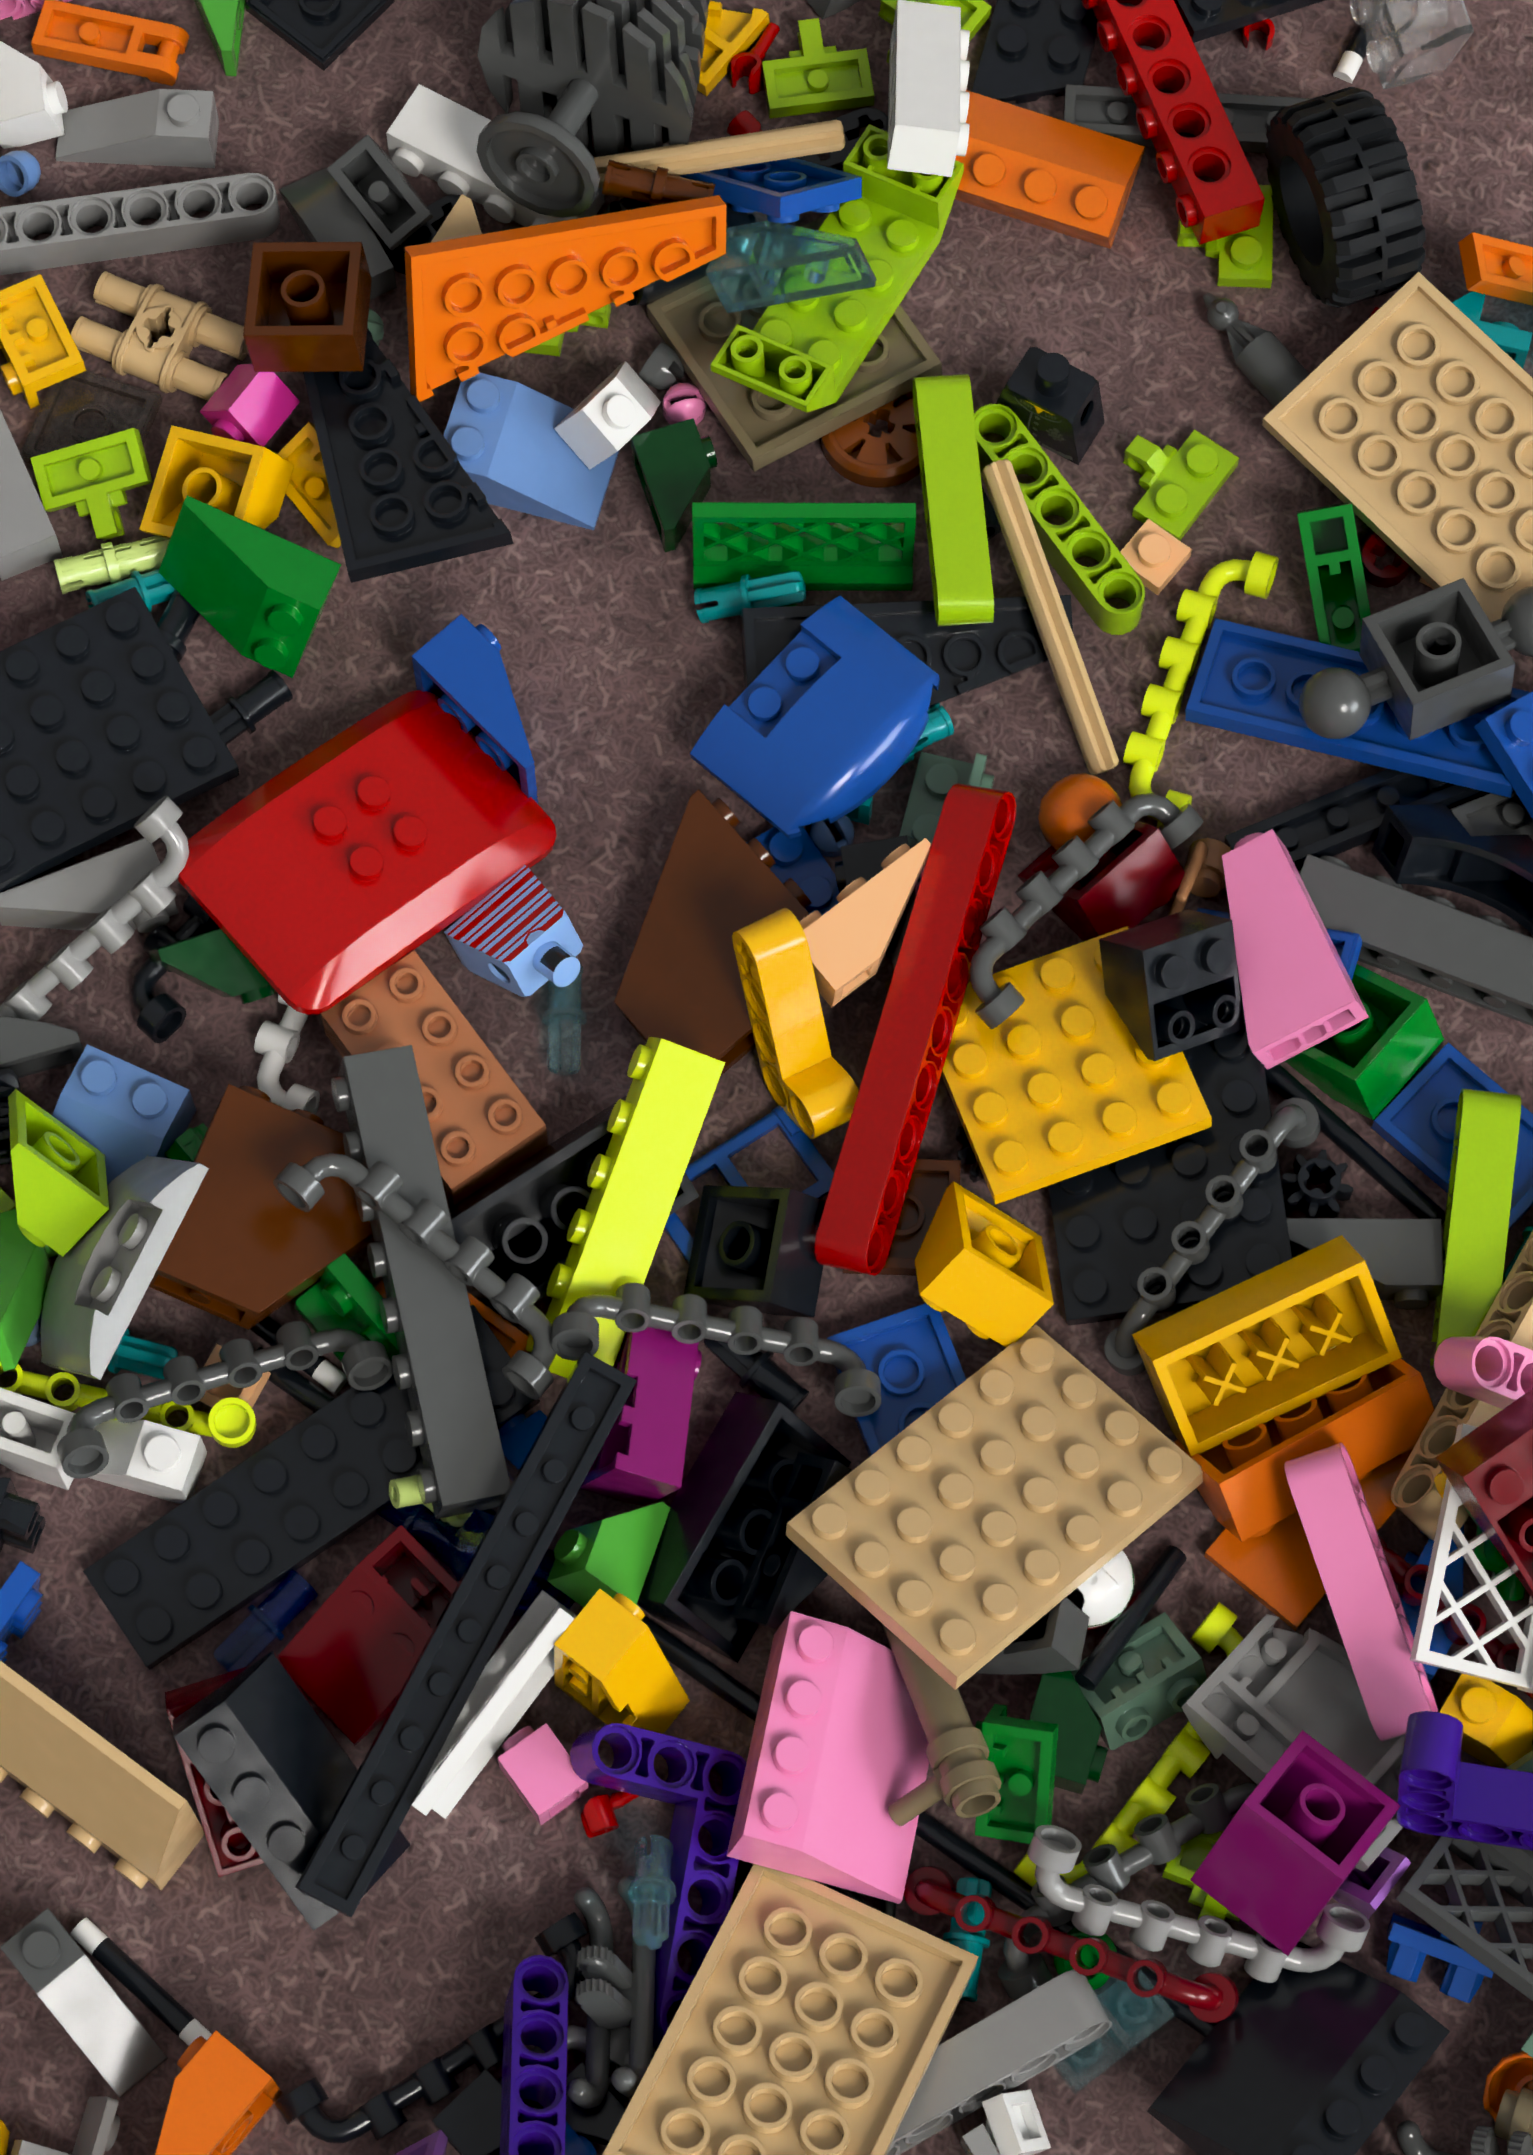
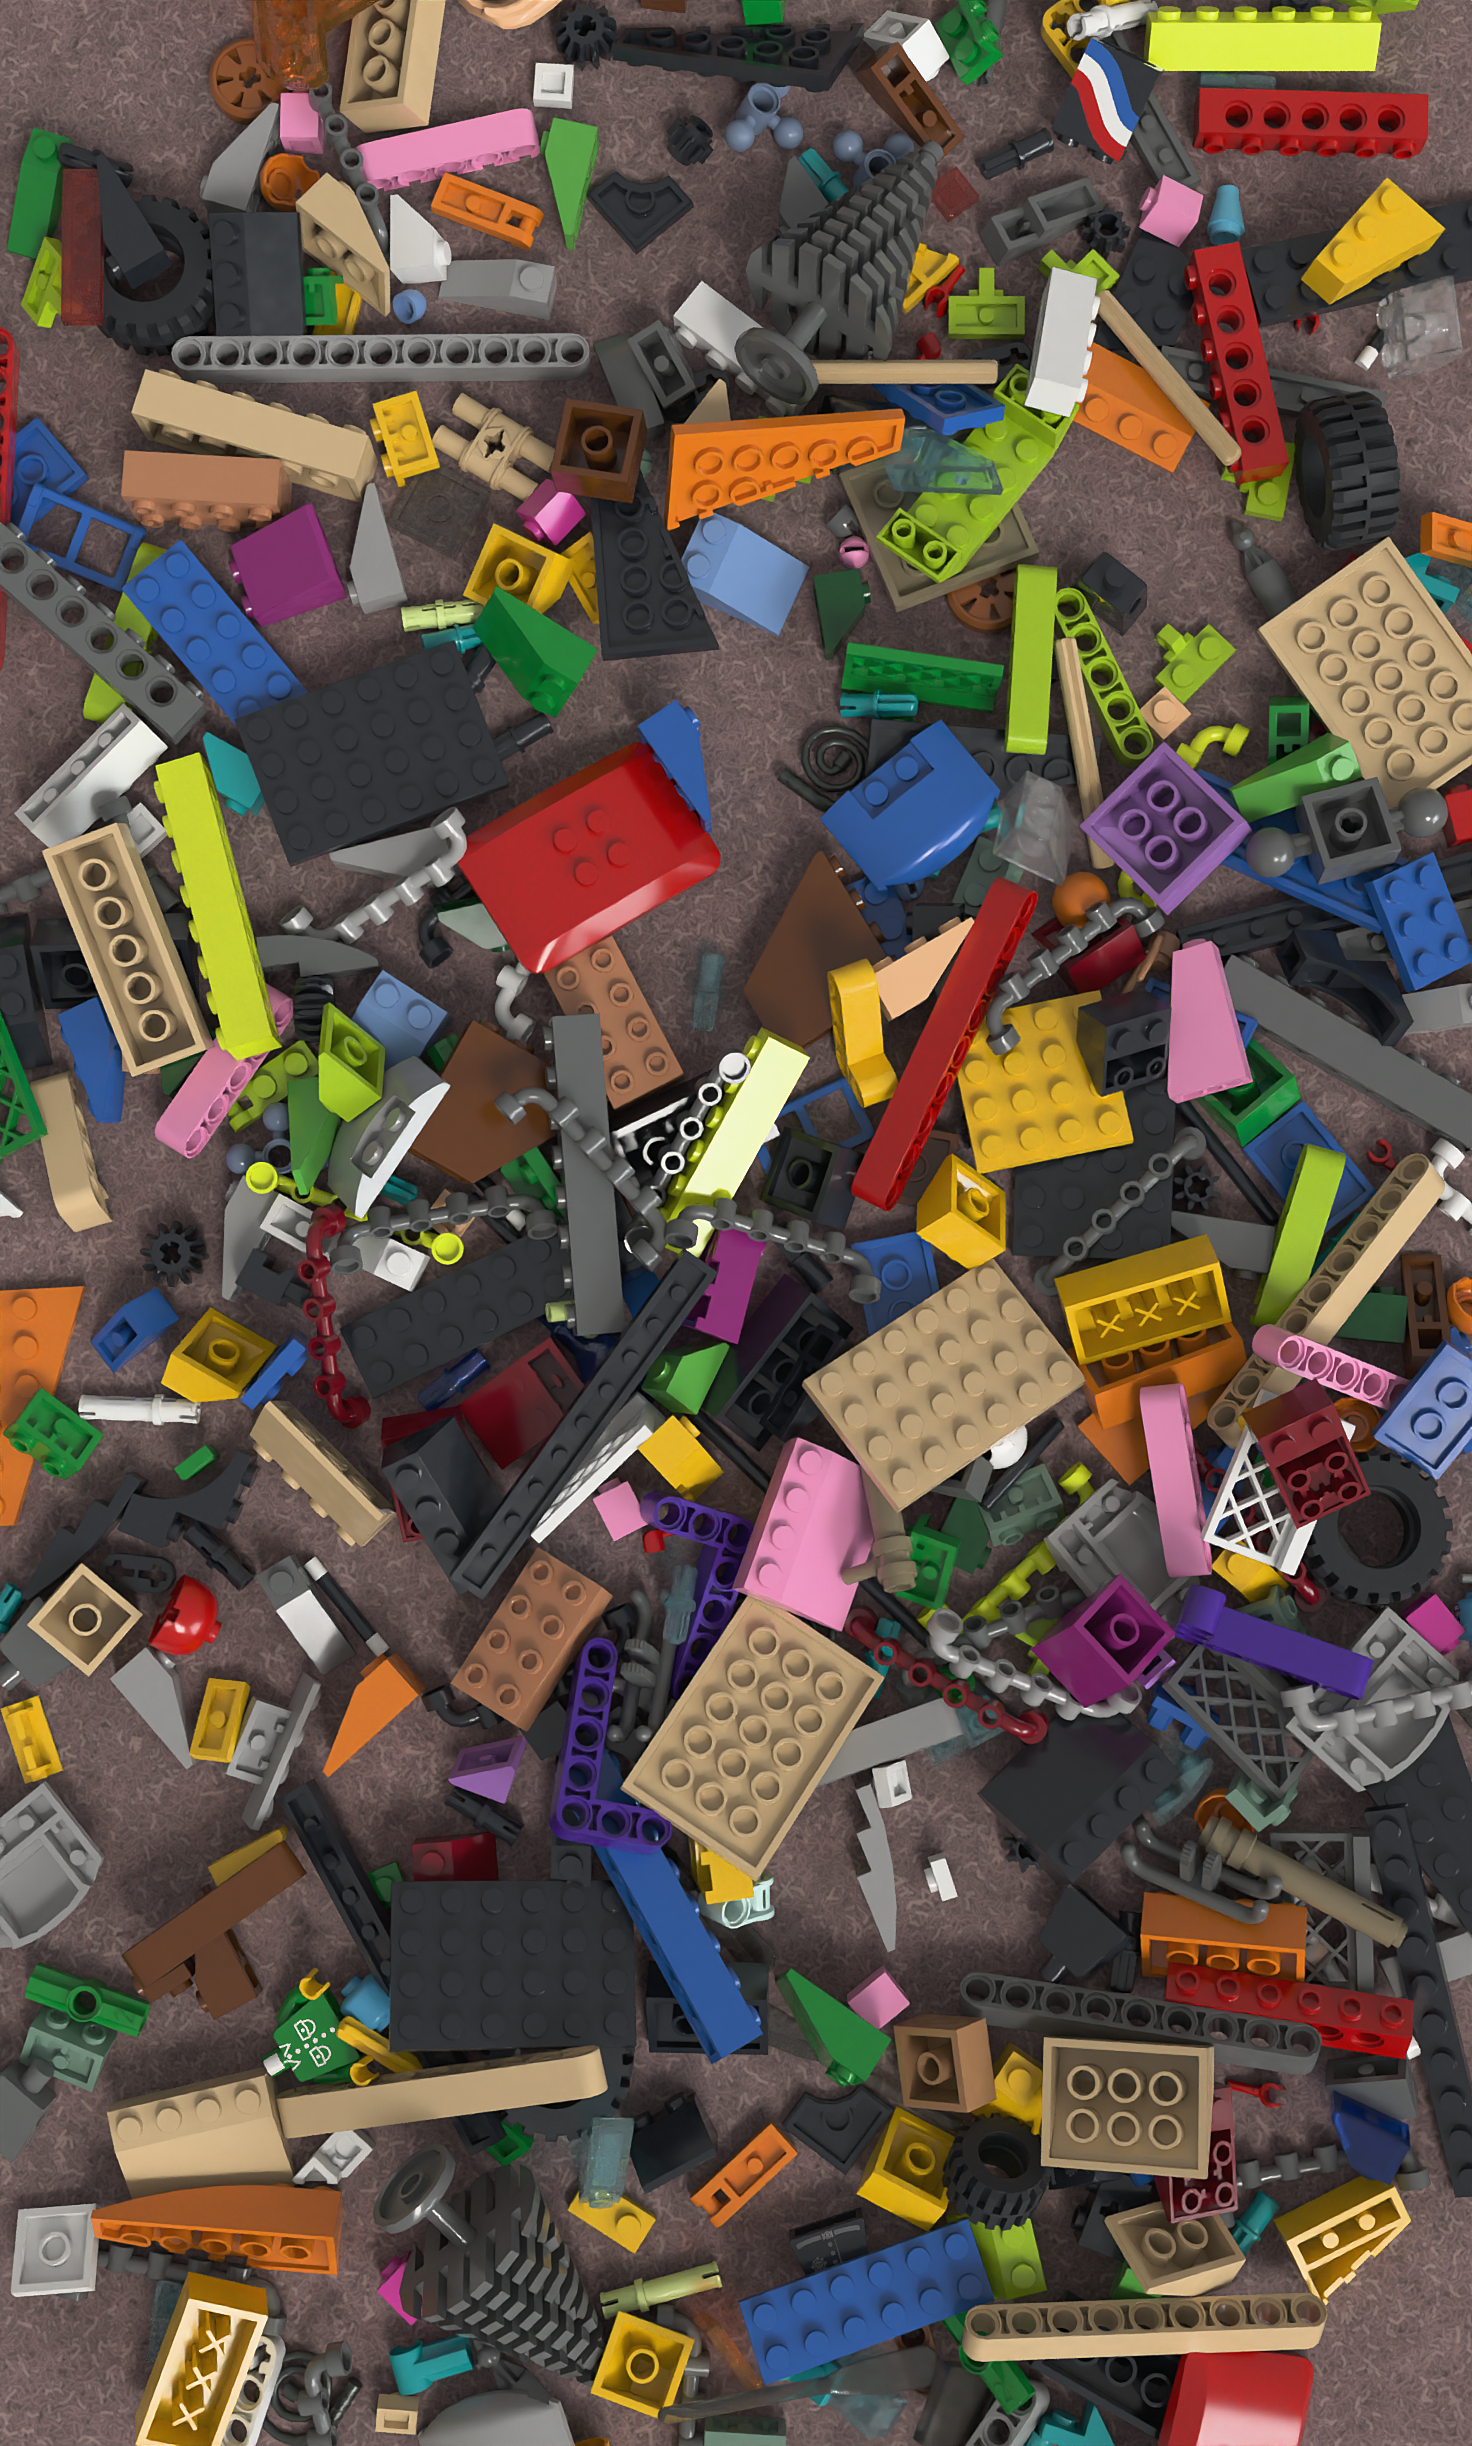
camera: 10 degrees right, 15 degrees up
(94, 478) = (436, 551): lime hinge -> none
(121, 1686) = (354, 1409): none -> dark red bar
(434, 1980) = (532, 1639): none -> nougat brick
(518, 937) = (684, 933): light blue torso -> none
(608, 416) = (801, 556): white slope -> none
(612, 1085) = (733, 1068): none -> dark grey bar
(651, 185) = (857, 392): reddish brown pin -> none
(707, 685) = (840, 763): none -> pearl dark grey piece
(1000, 722) = (1036, 828): none -> clear slope
(1080, 120) = (1168, 379): none -> tan axle
(1183, 693) = (1166, 828): none -> medium lavender slope
(1334, 612) = (1311, 769): none -> bright green slope
(1464, 2051) = (1193, 1775): none -> clear light blue slope

